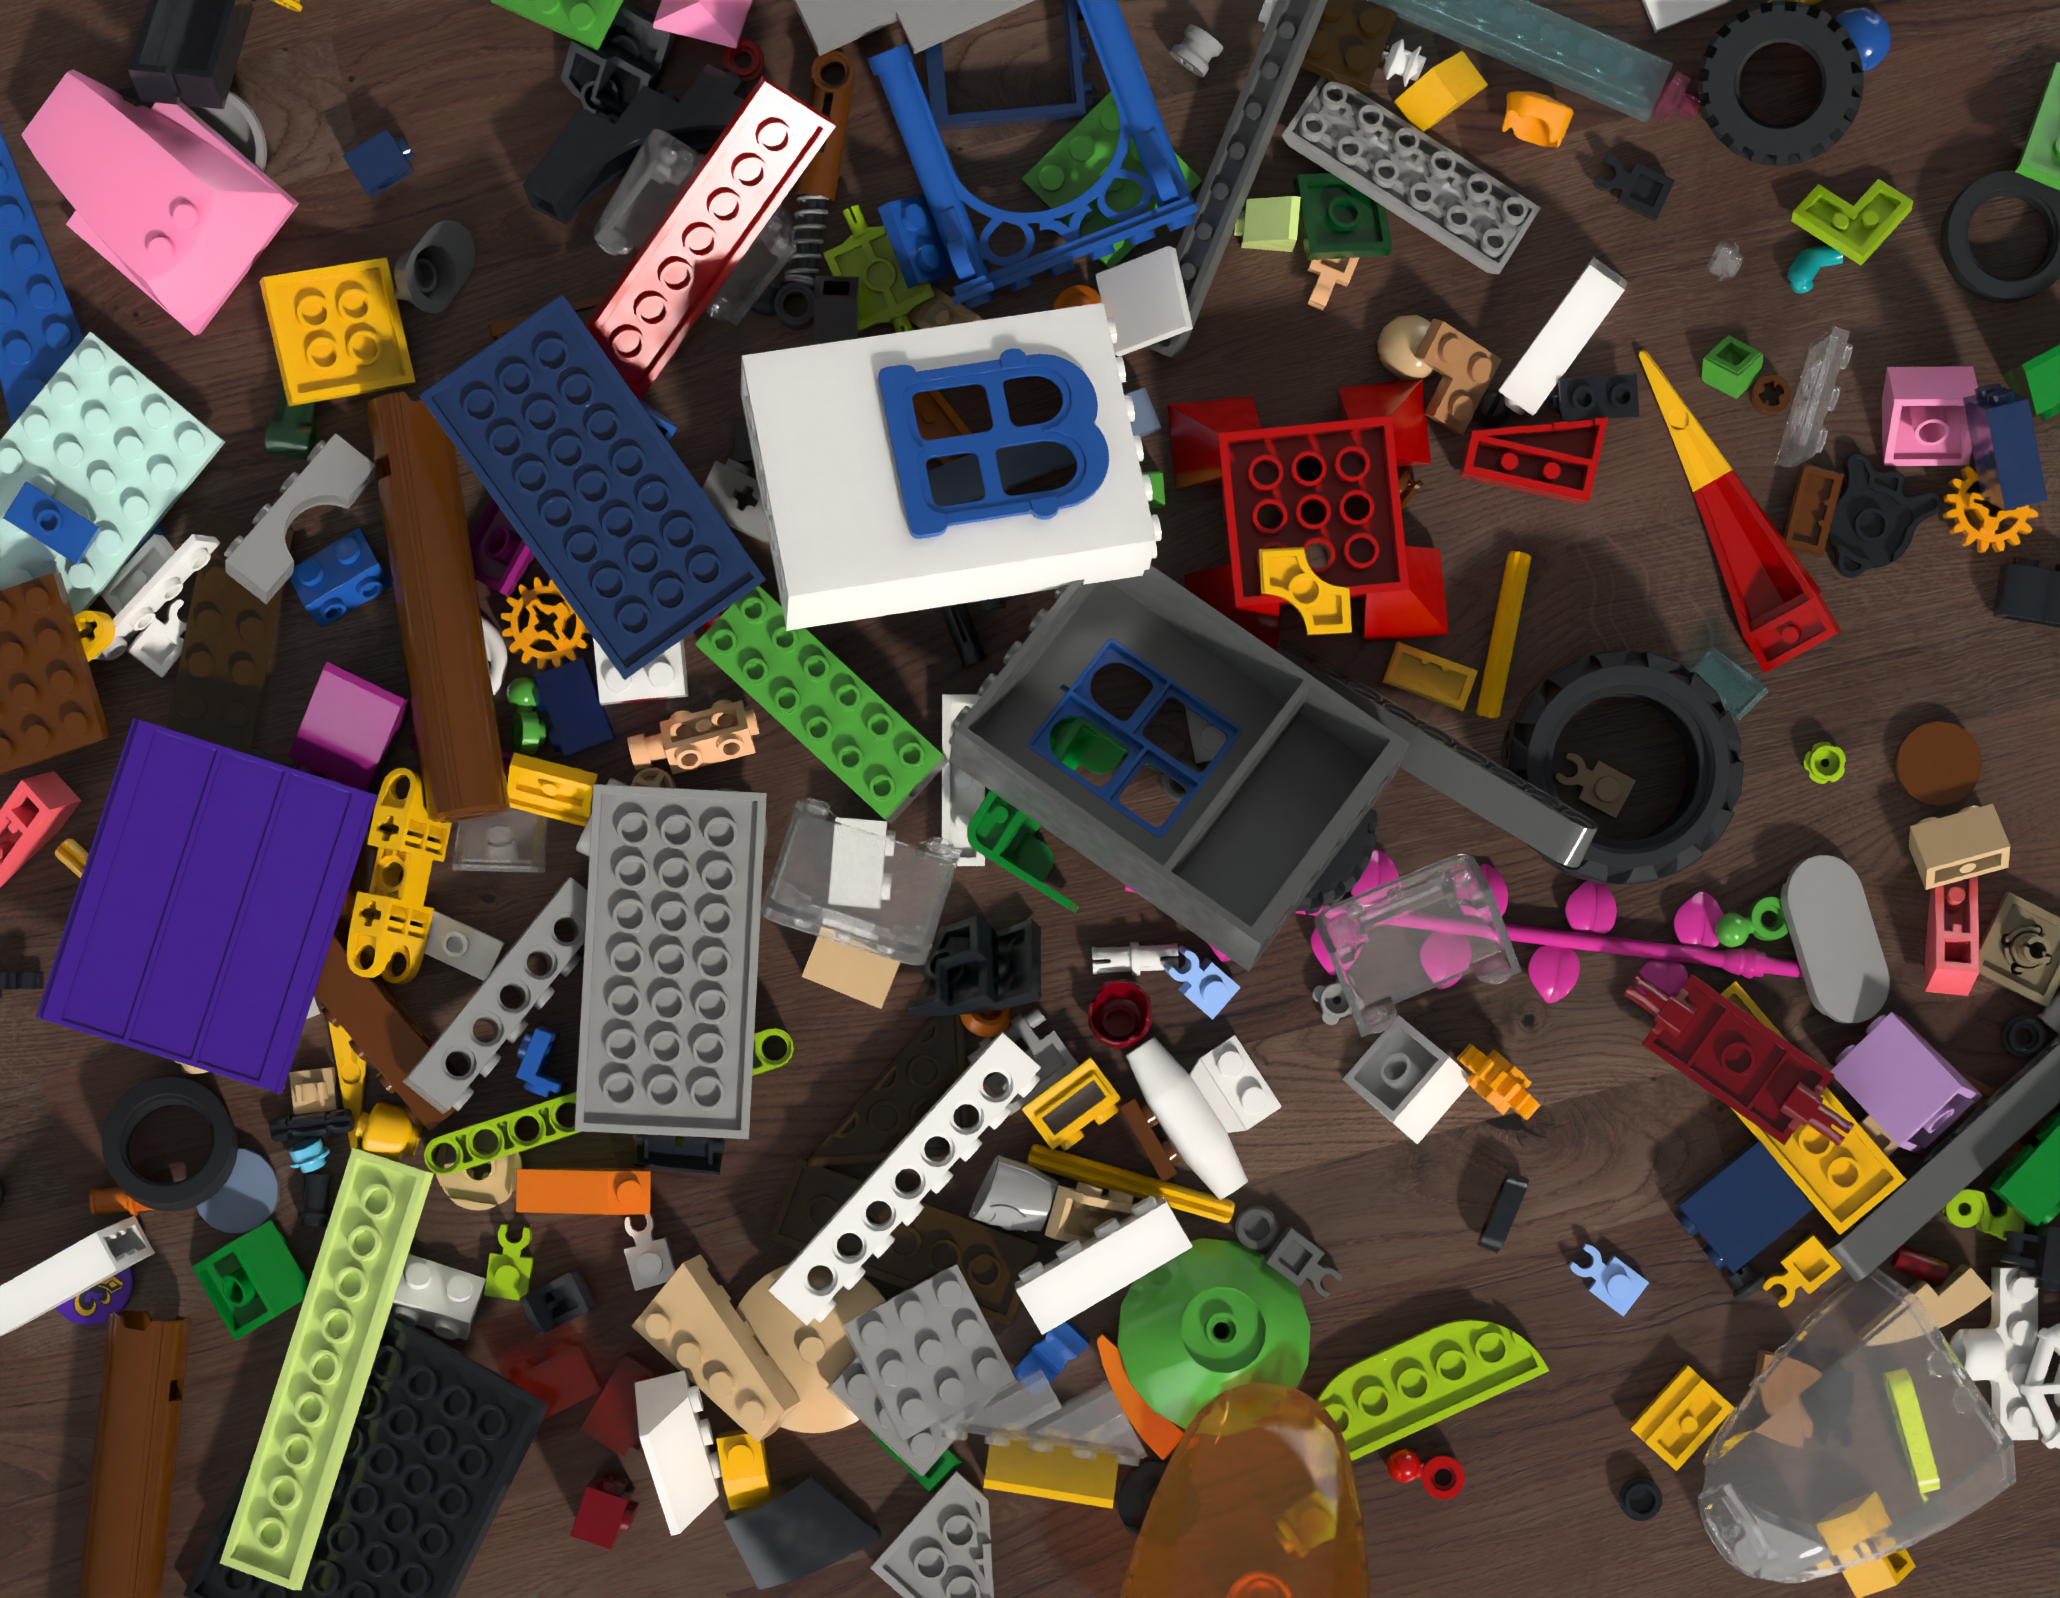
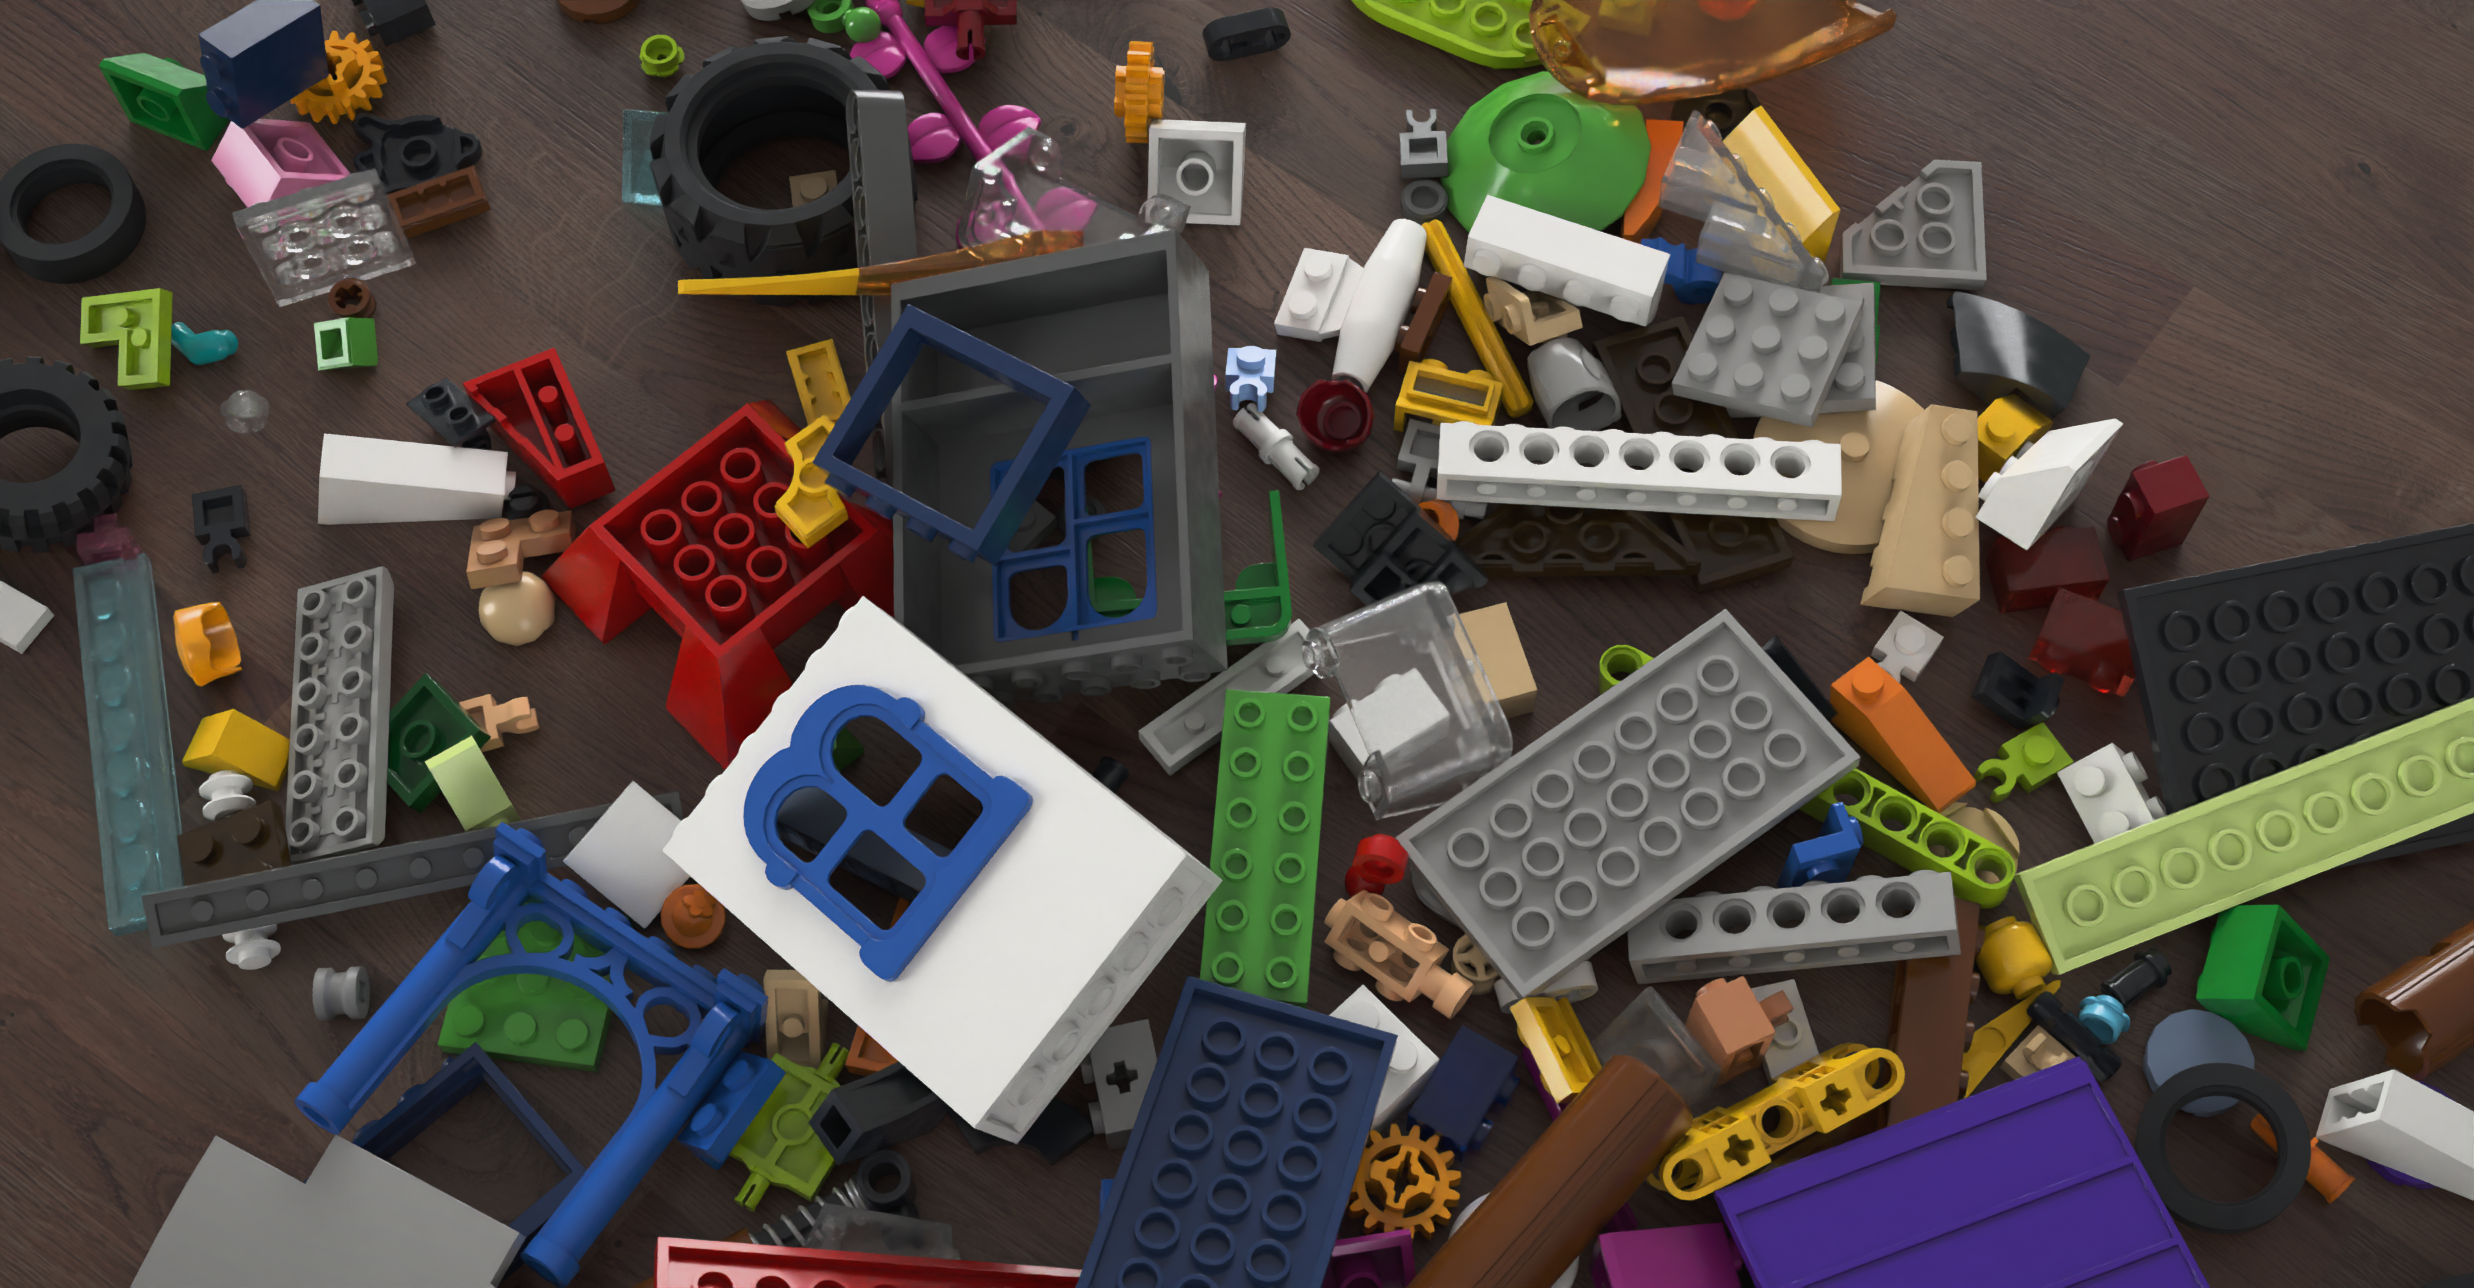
camera: 125 degrees left, 25 degrees down
(477, 904) = (1735, 1025): none -> nougat brick
(527, 729) = (1520, 1127): bright green plate -> none
(761, 768) = (1376, 863): none -> red plate
(1261, 752) = (1024, 478): none -> dark blue window
(1388, 832) = (878, 278): none -> clear orange plate
(1503, 634) = (736, 359): yellow axle -> none
(1768, 585) = (531, 188): red plate -> none

